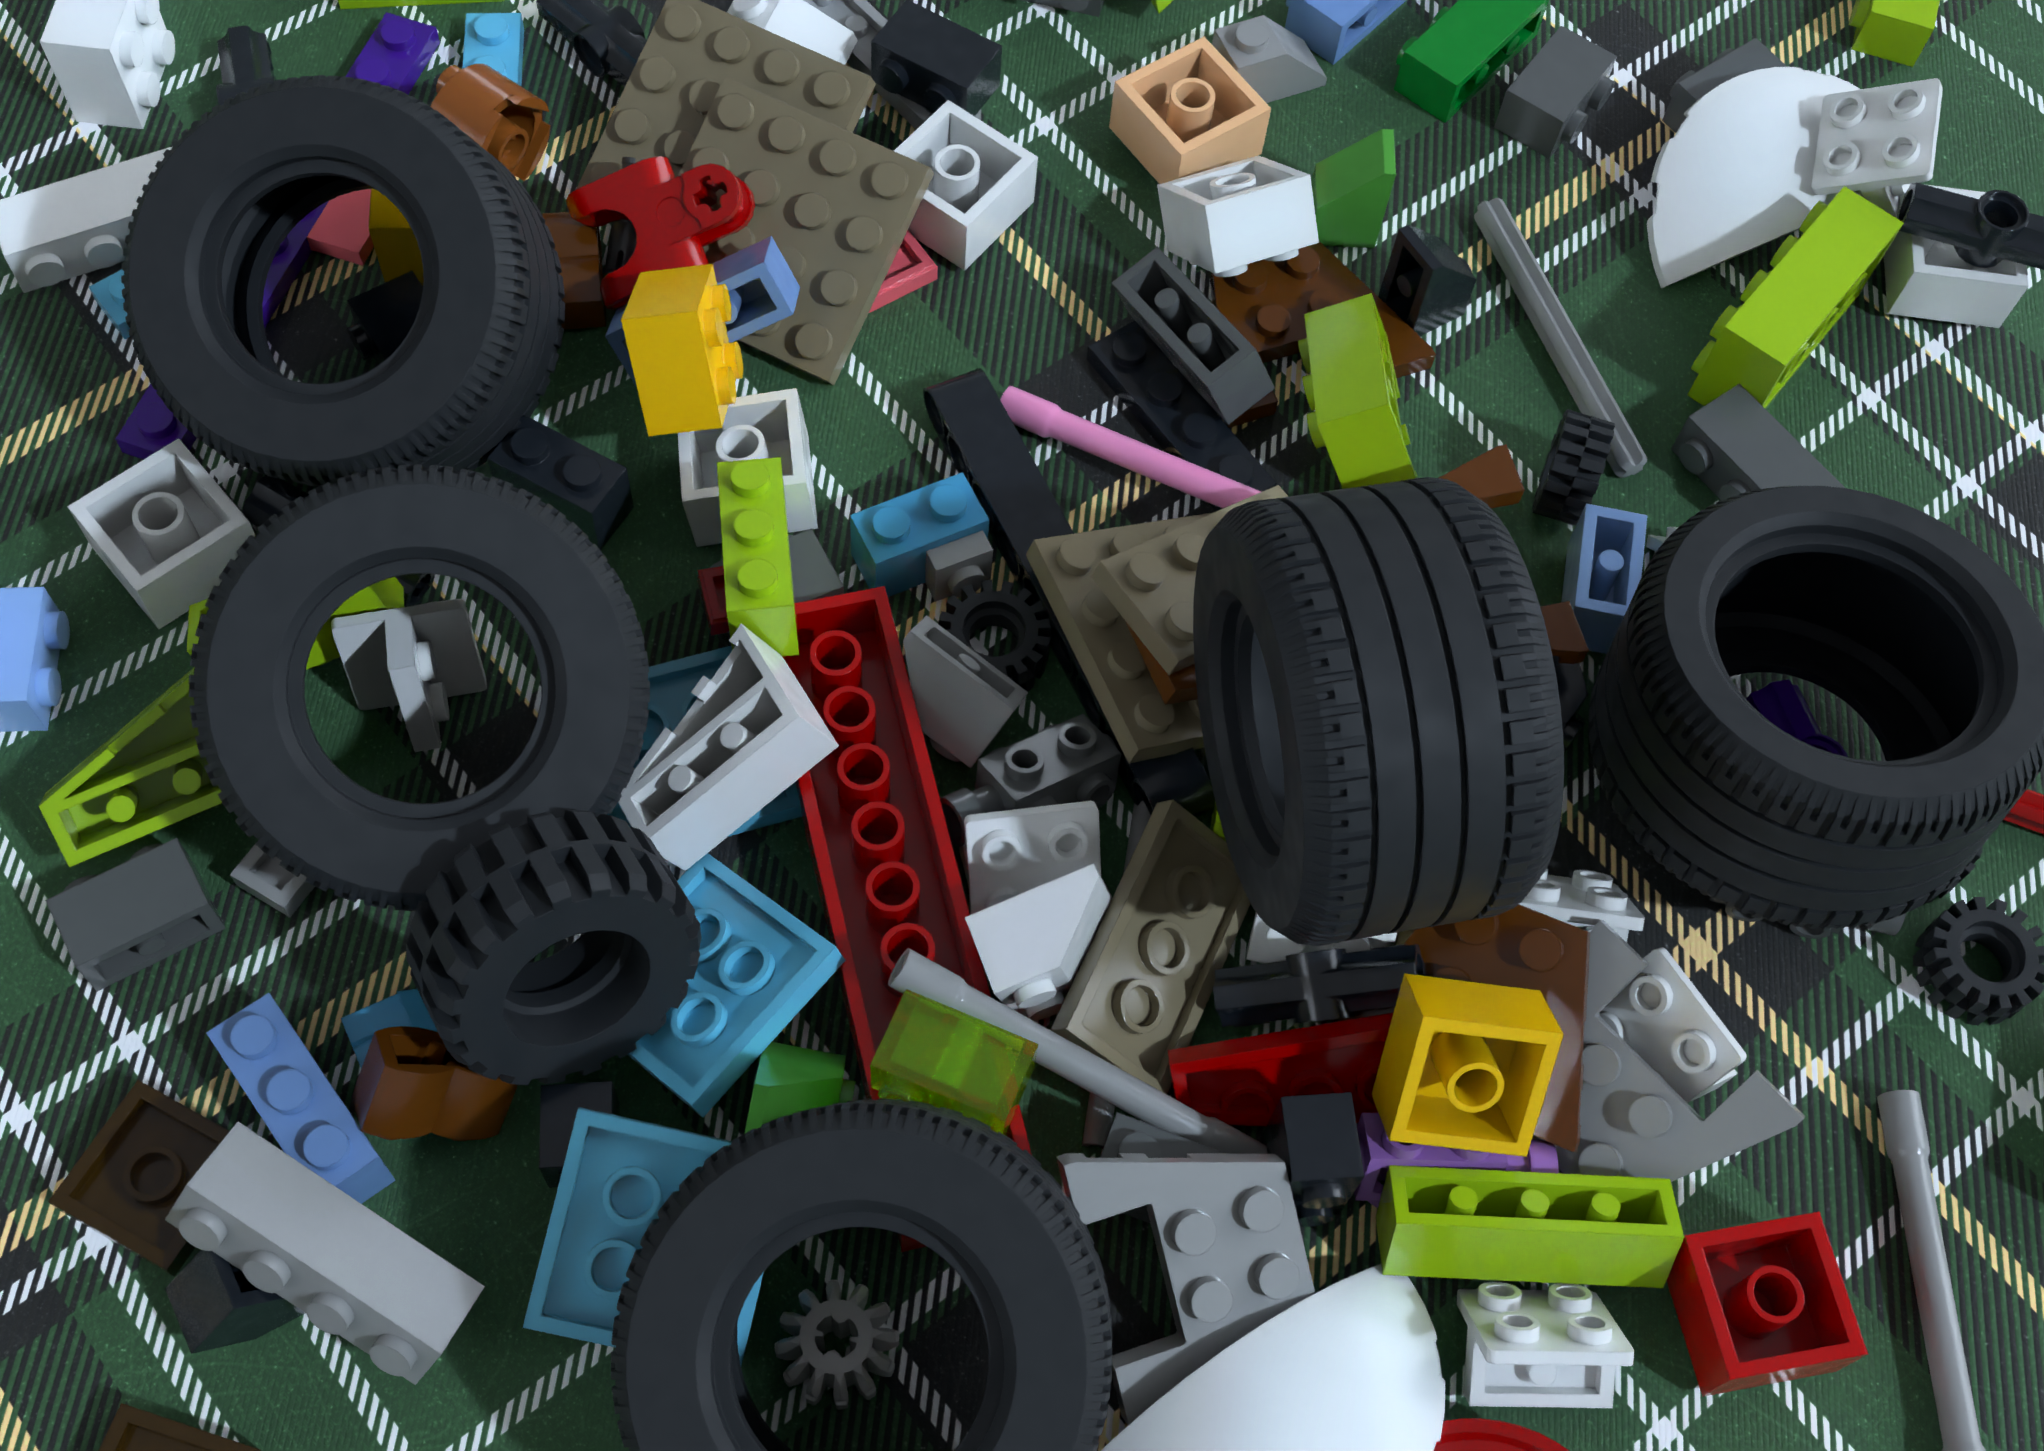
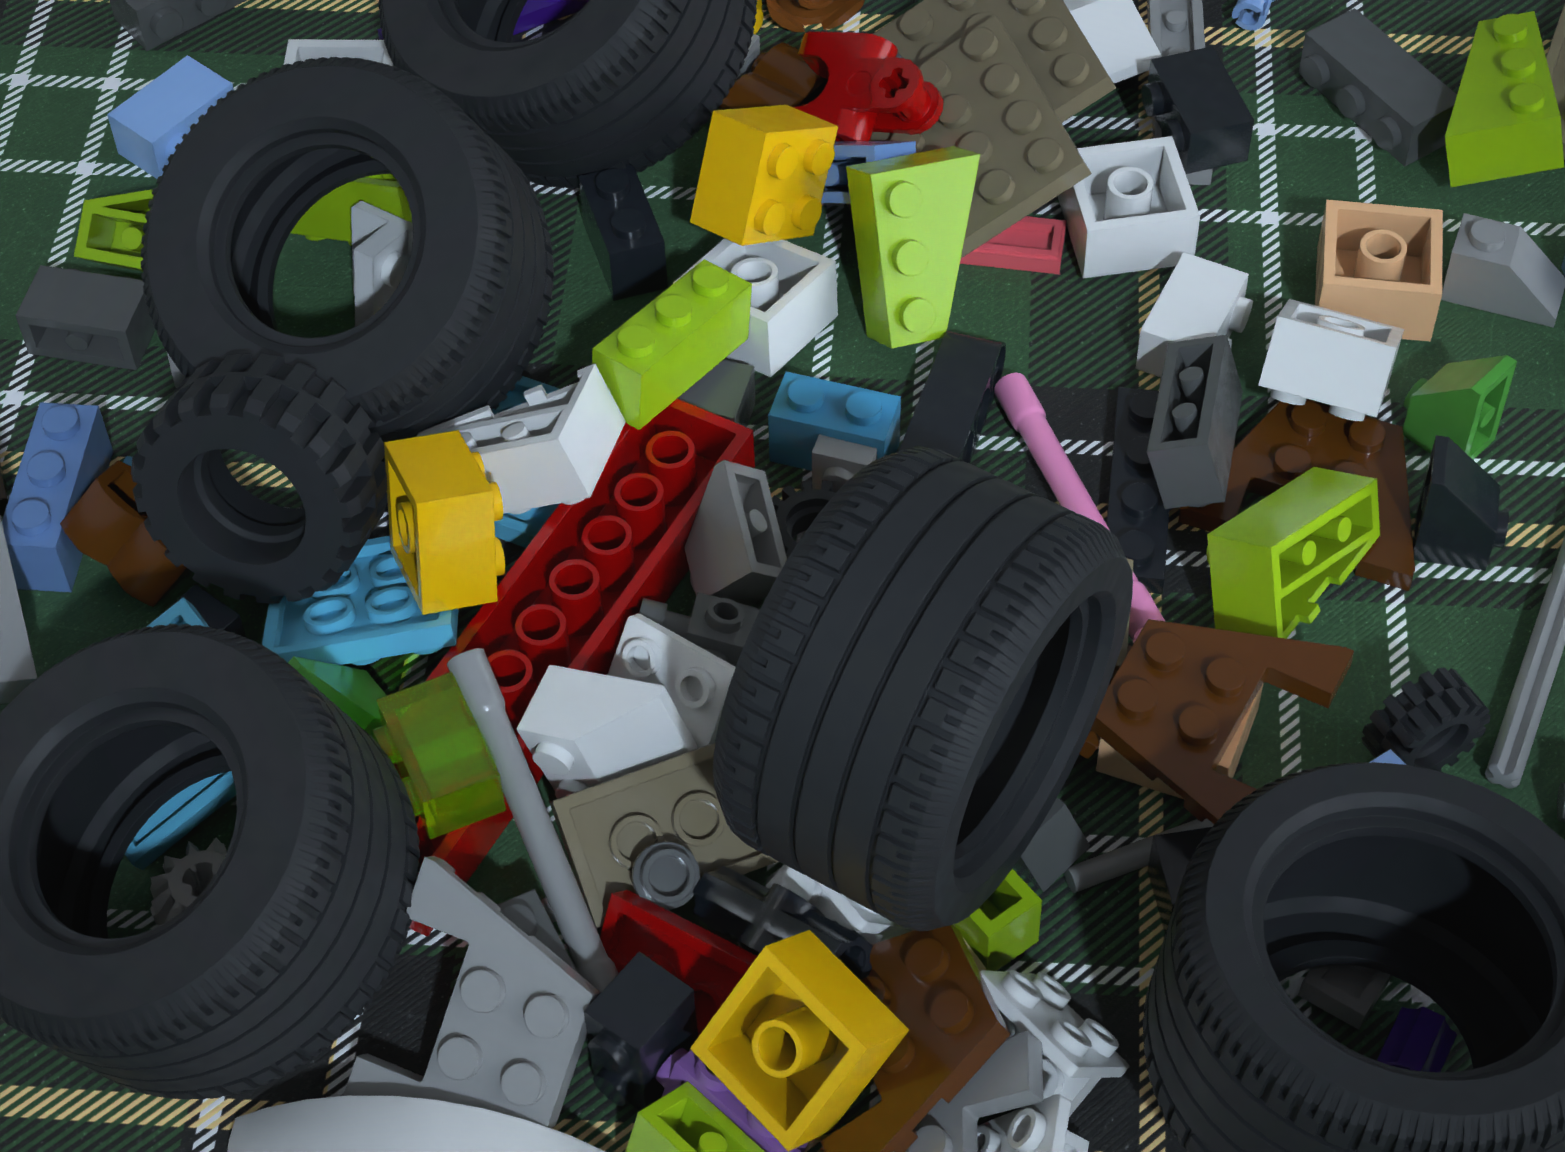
camera: 50 degrees right, 10 degrees down
(749, 861) = (443, 521): none -> yellow brick
(847, 326) = (910, 240): none -> lime wedge
(1088, 248) = (1194, 304): none -> white brick
(1189, 1014) = (665, 874): none -> dark grey plate

